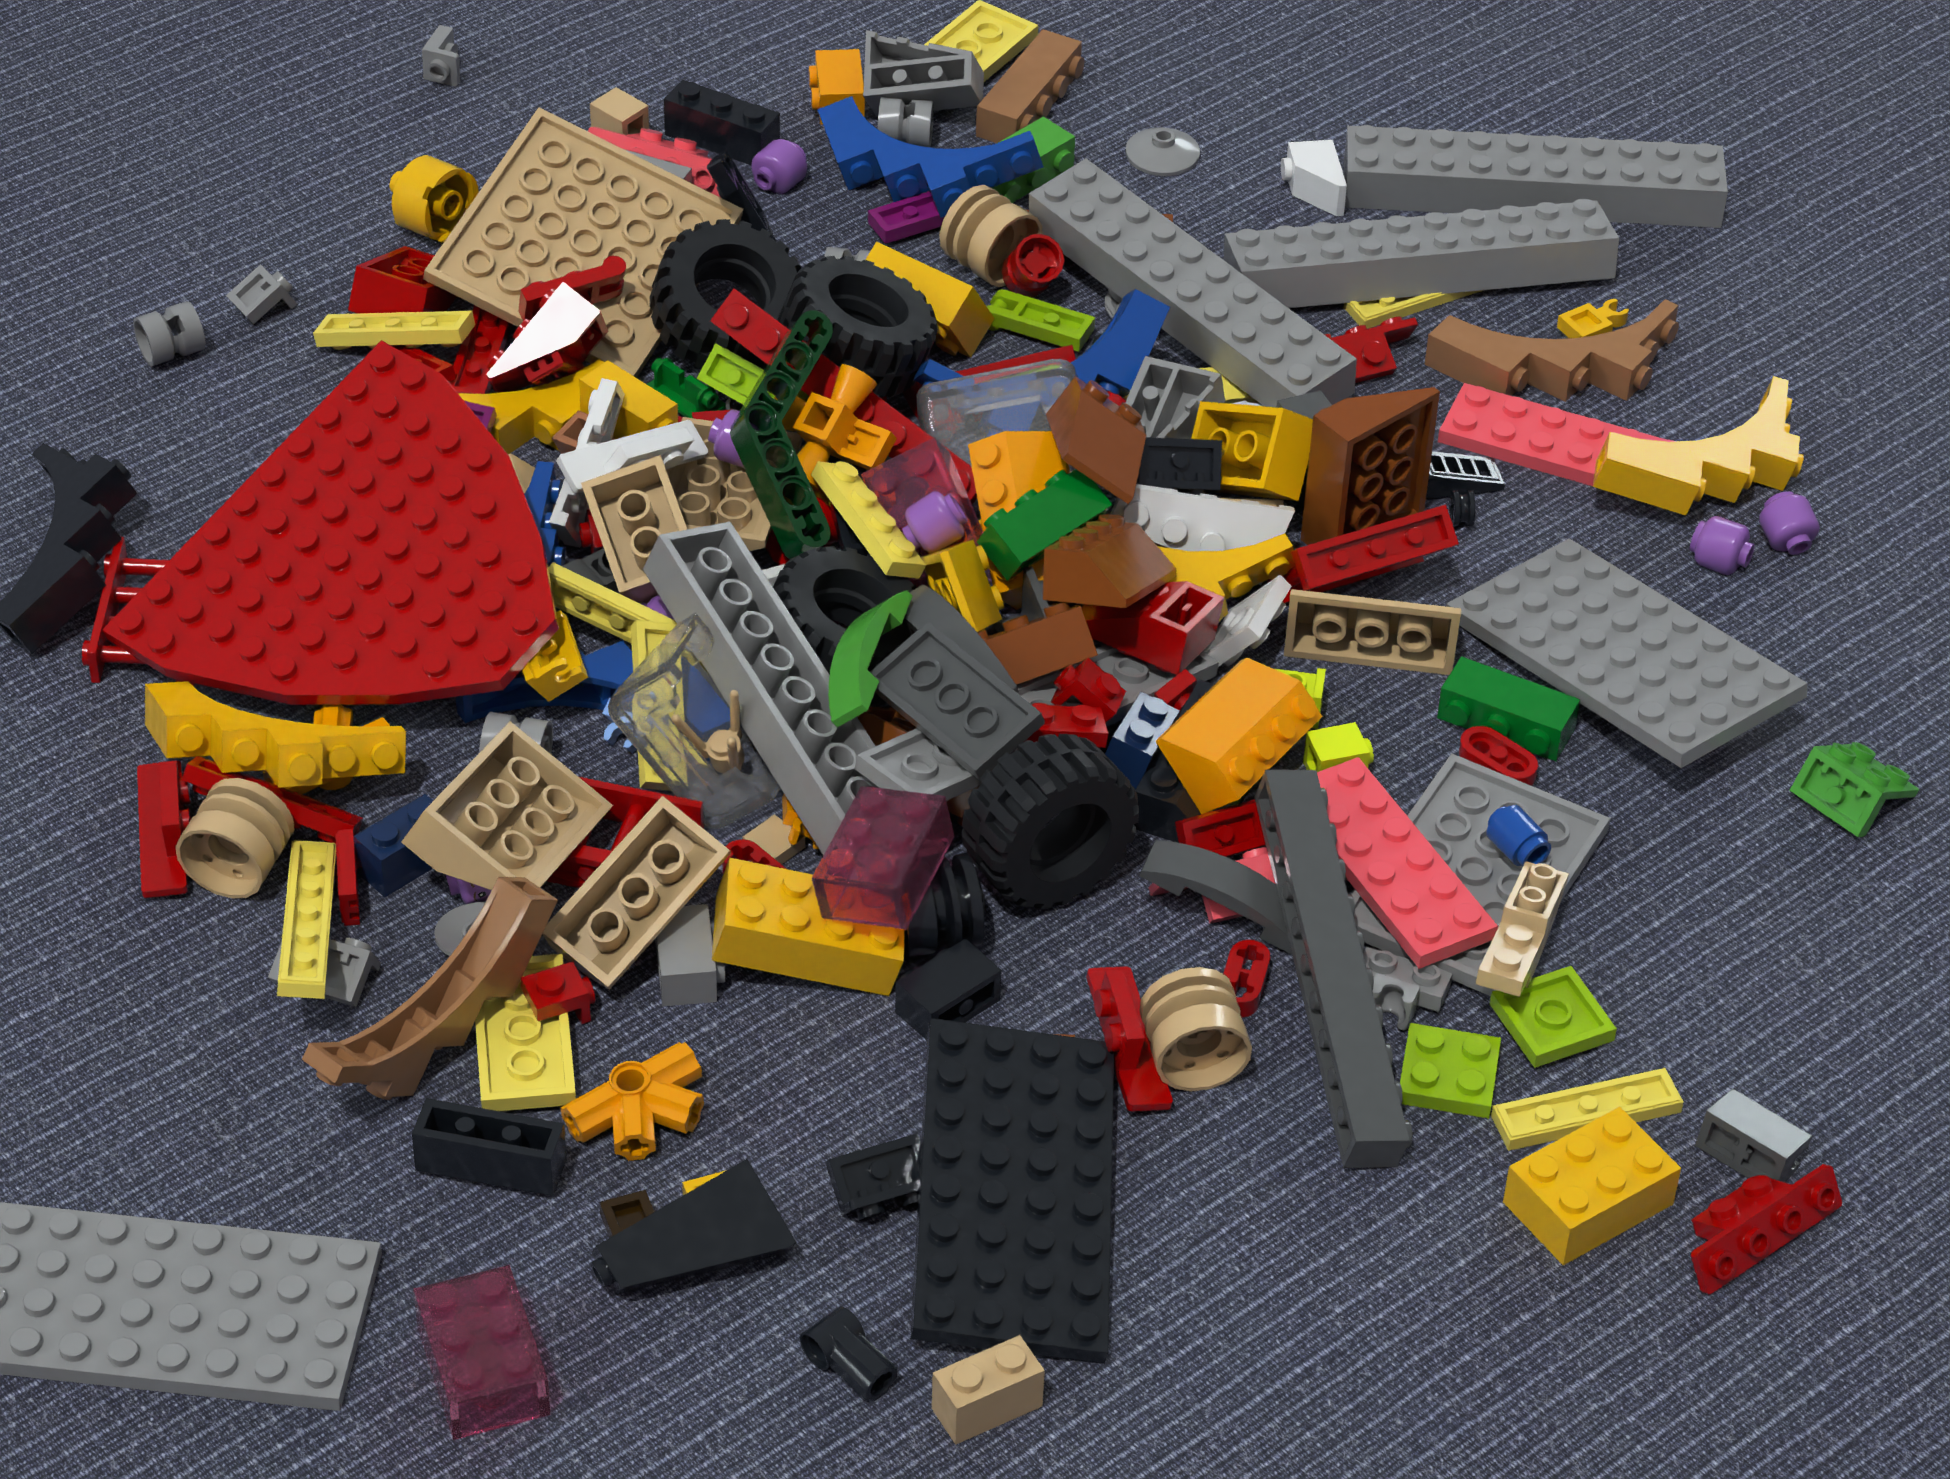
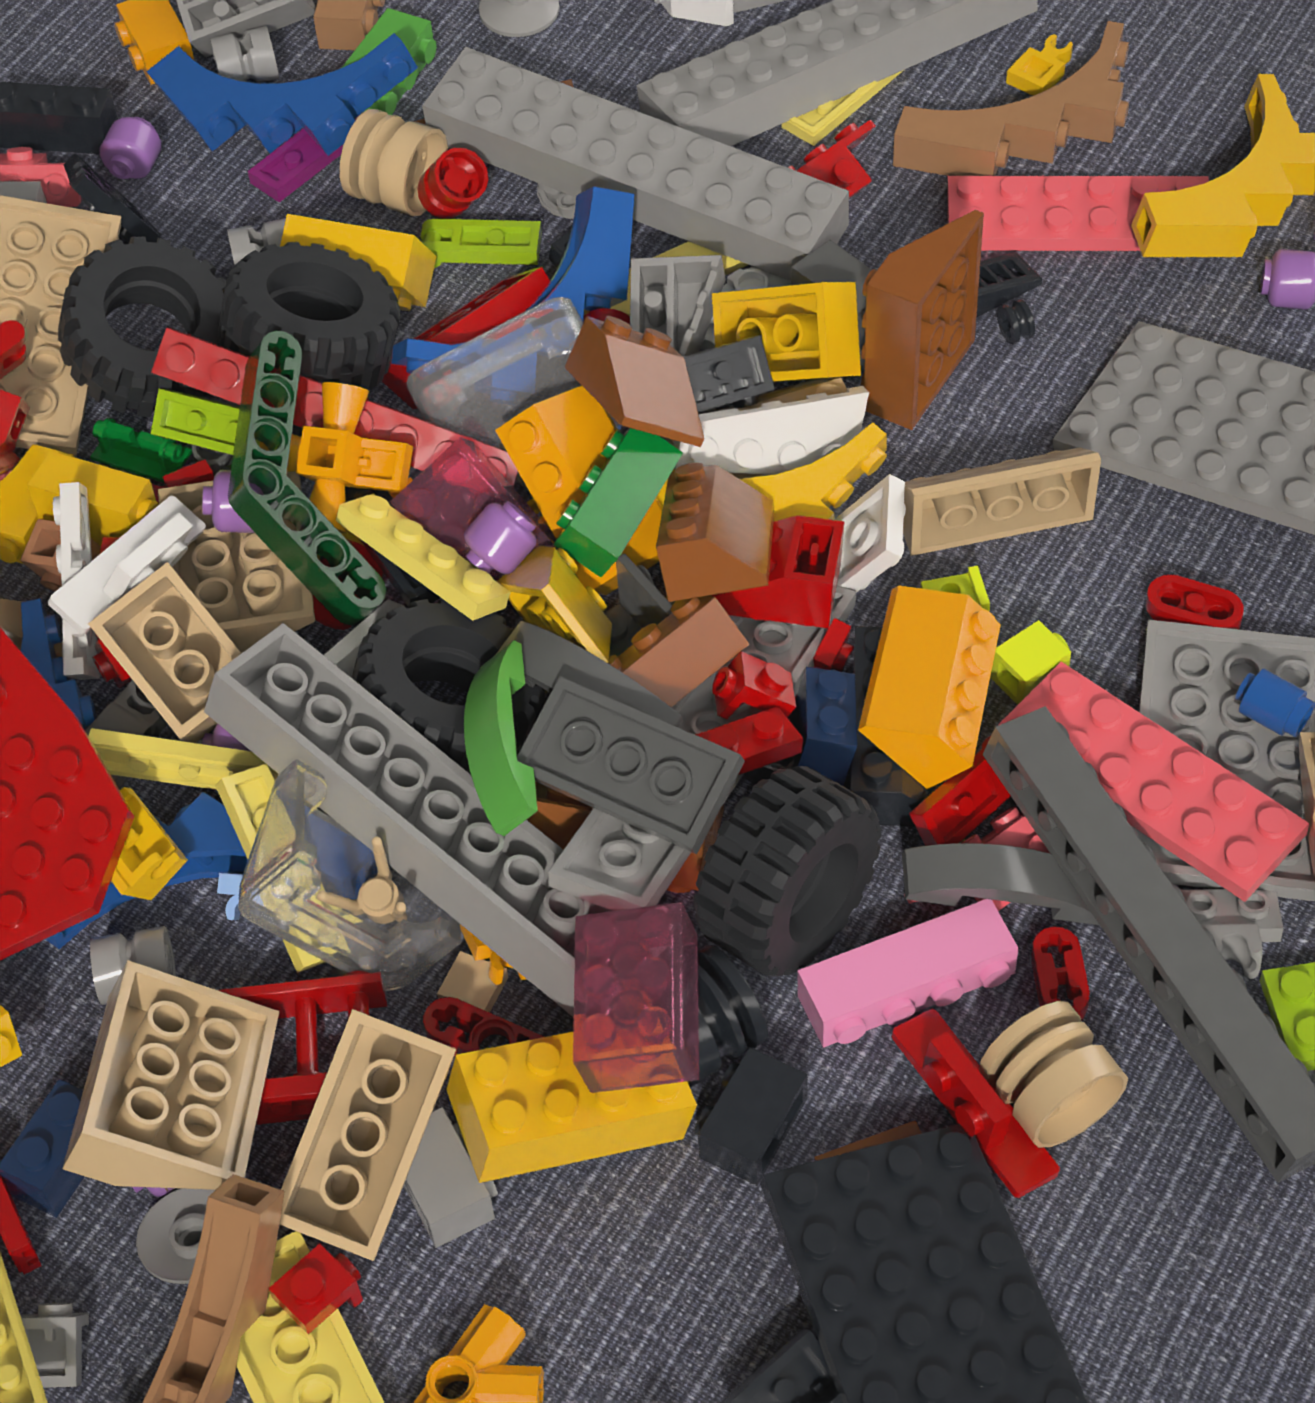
camera: 15 degrees left, 10 degrees up
(1120, 934) = (907, 973): none -> bright pink brick
(1370, 551) = (961, 413): red fence -> none
(1513, 706) = (1178, 541): green brick -> none

